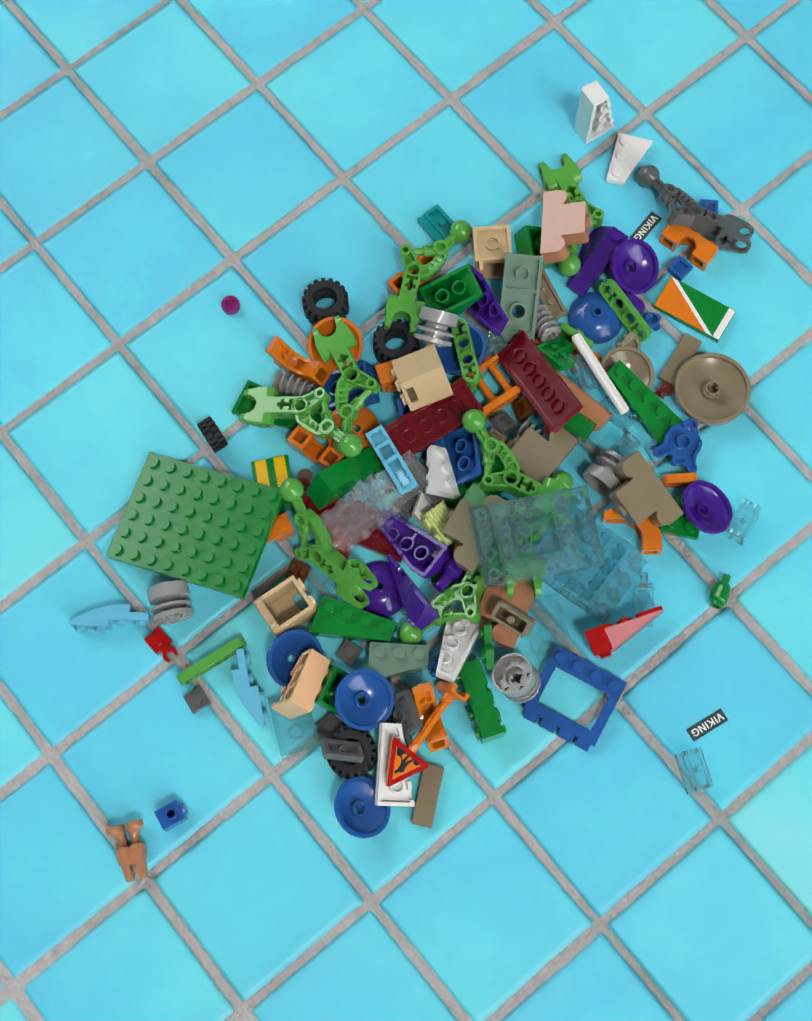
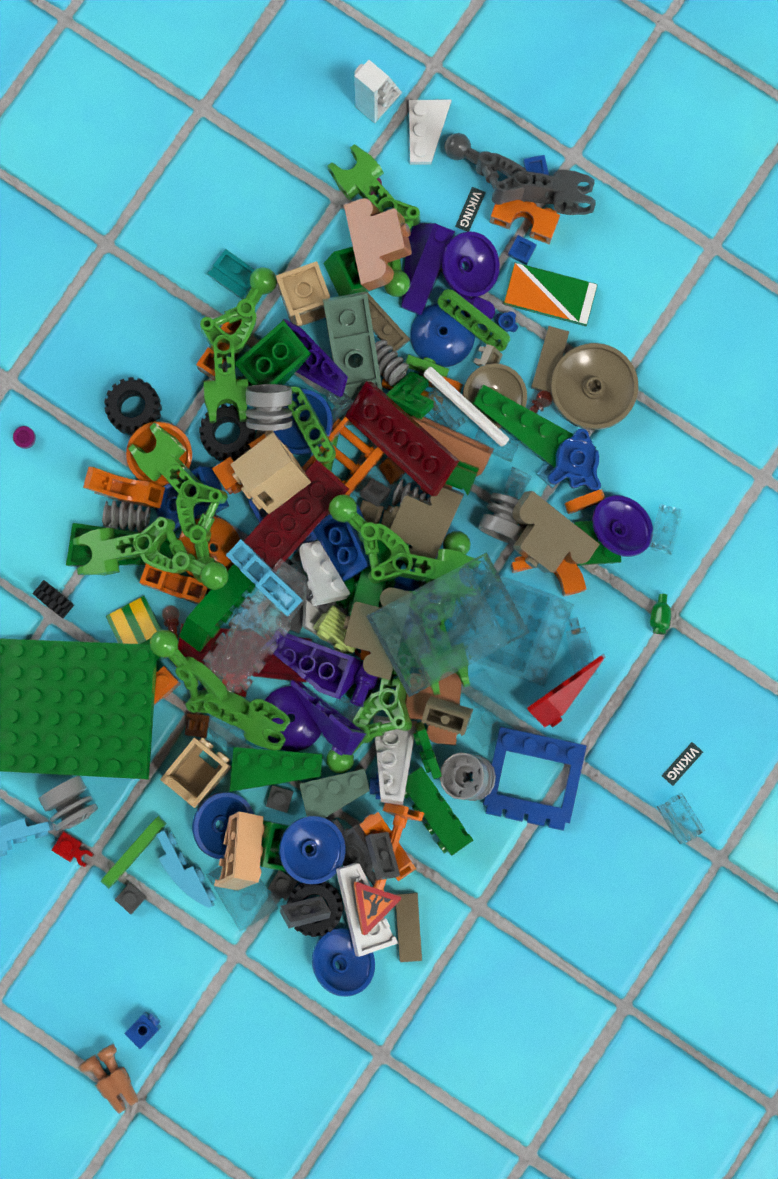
camera: 20 degrees left, 10 degrees up
(423, 721) = (382, 856): none -> dark grey plate

